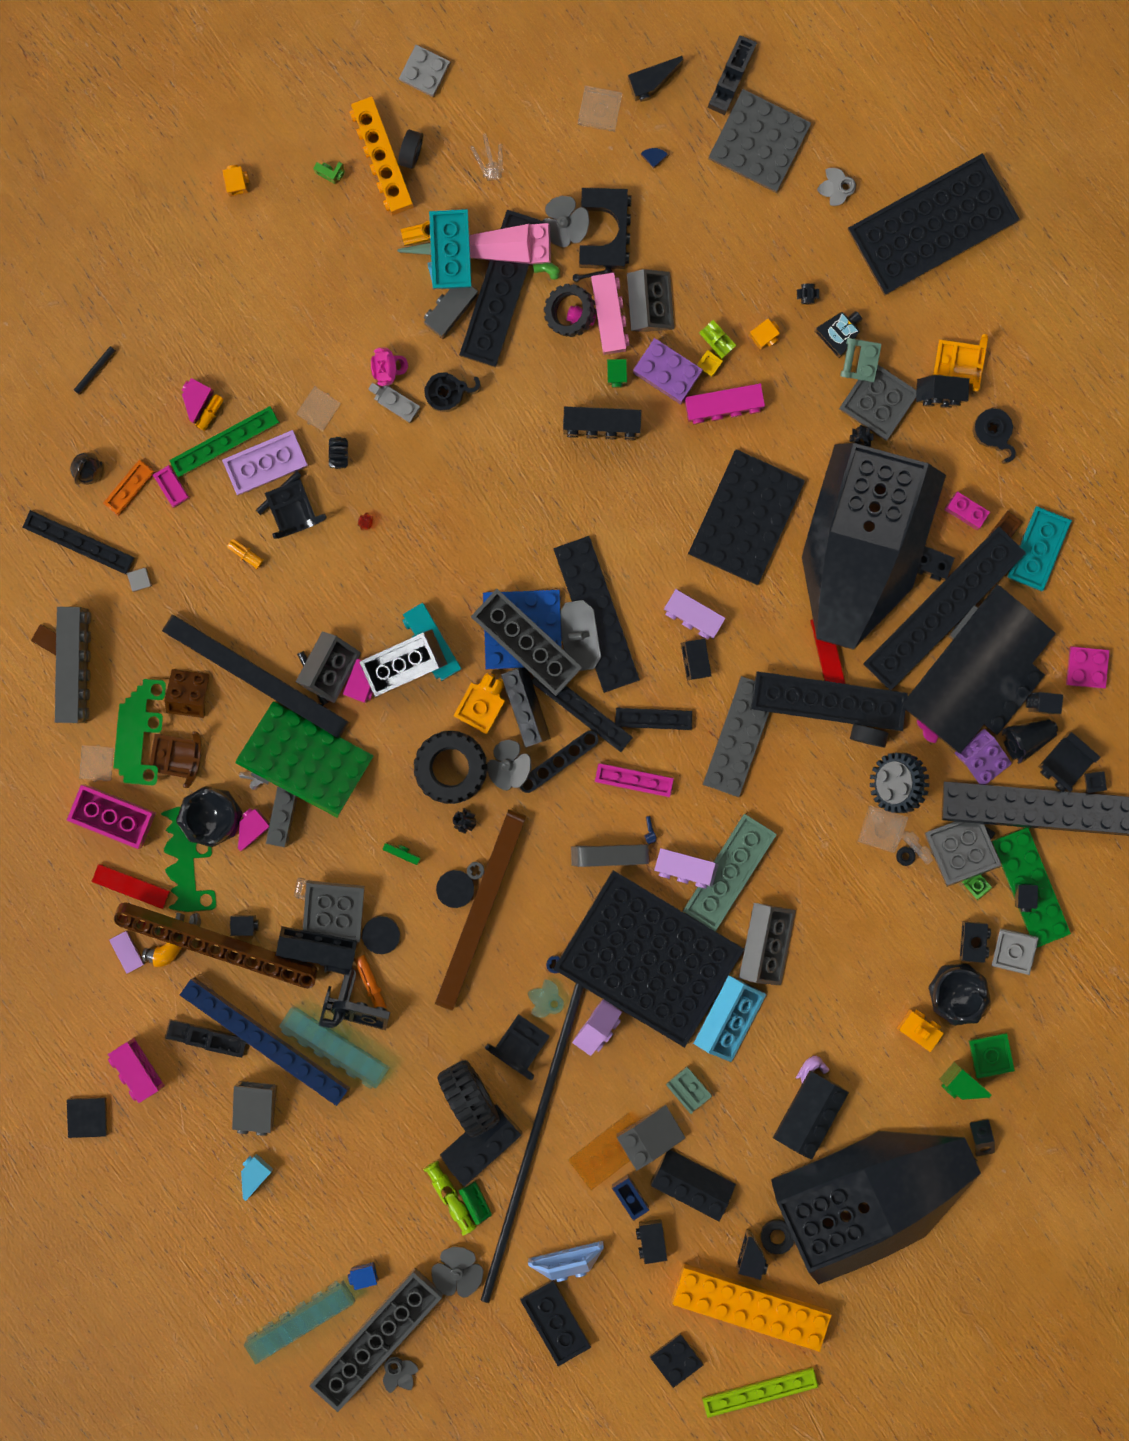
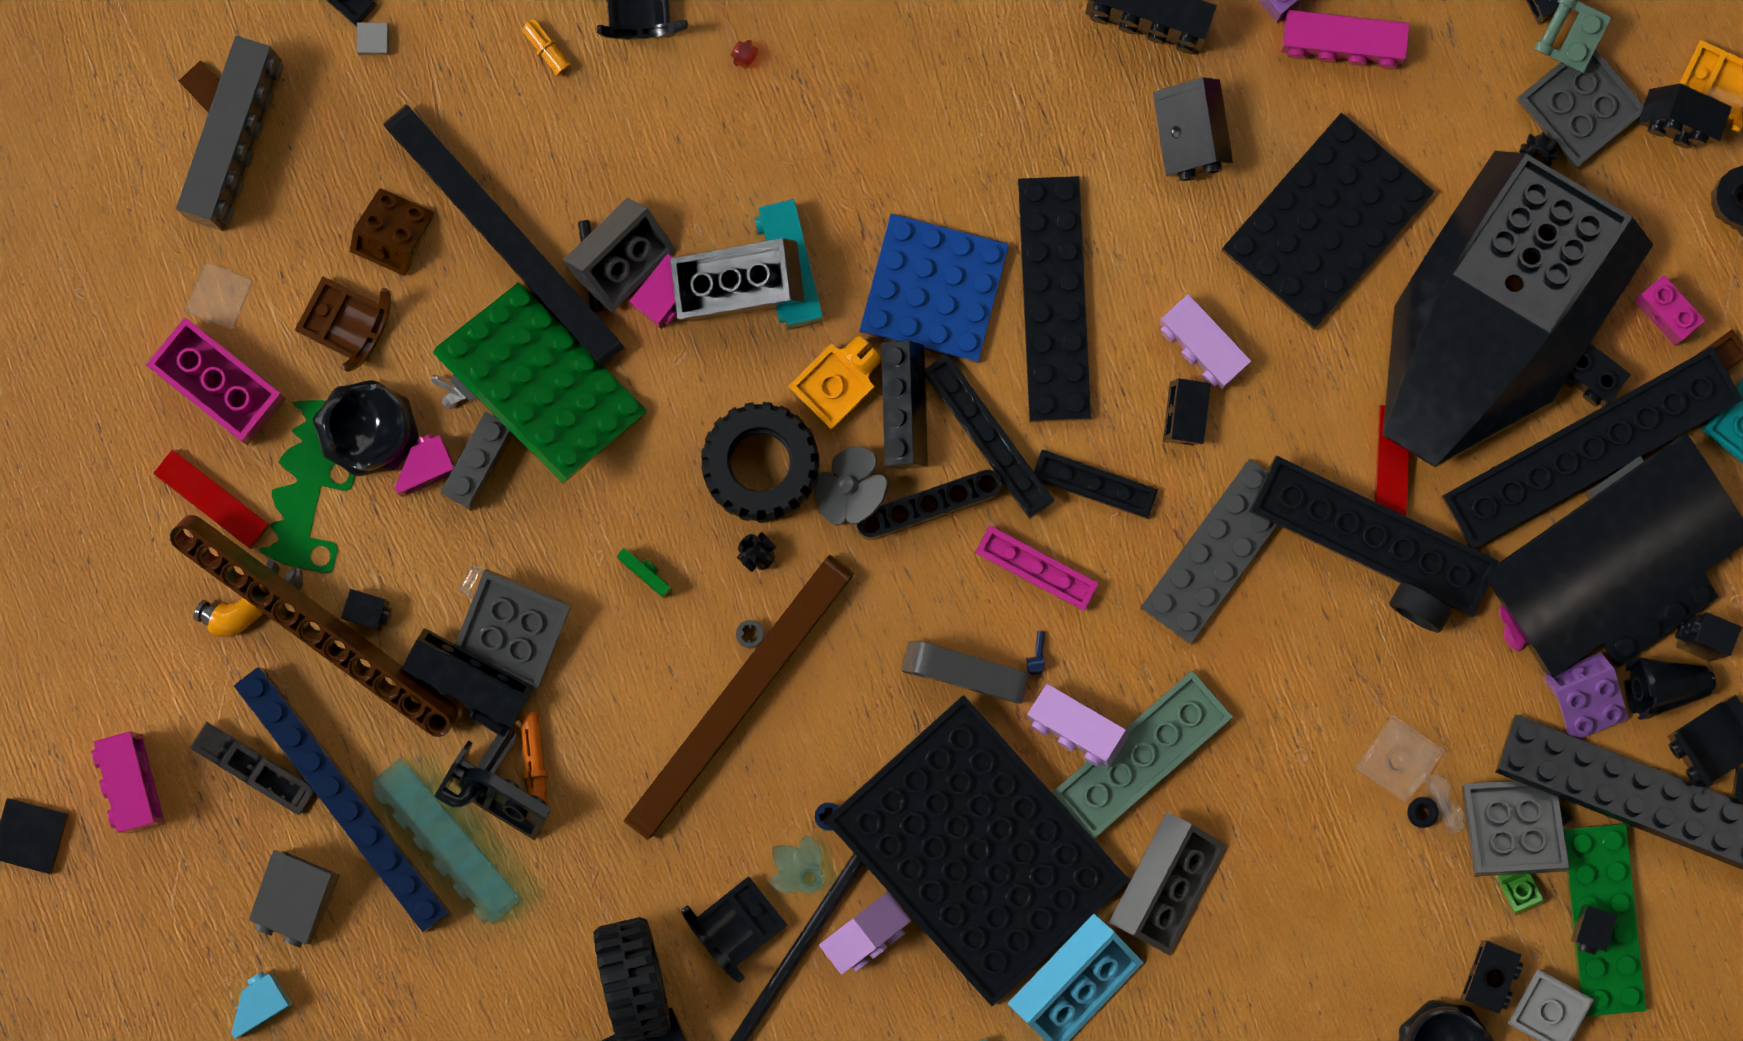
camera: 20 degrees right, 5 degrees down
(126, 952) = (172, 598): lavender tile -> none
(130, 733) = (284, 266): green piece -> none
(381, 935) = (573, 690): black tile -> none
(455, 889) = (709, 653): black tile -> none
(526, 642) = (935, 305): dark grey brick -> none
(580, 634) = (1019, 322): dark grey shield -> none
(649, 487) = (1193, 128): none -> black piece
(899, 782) = (1447, 692): wheel -> none

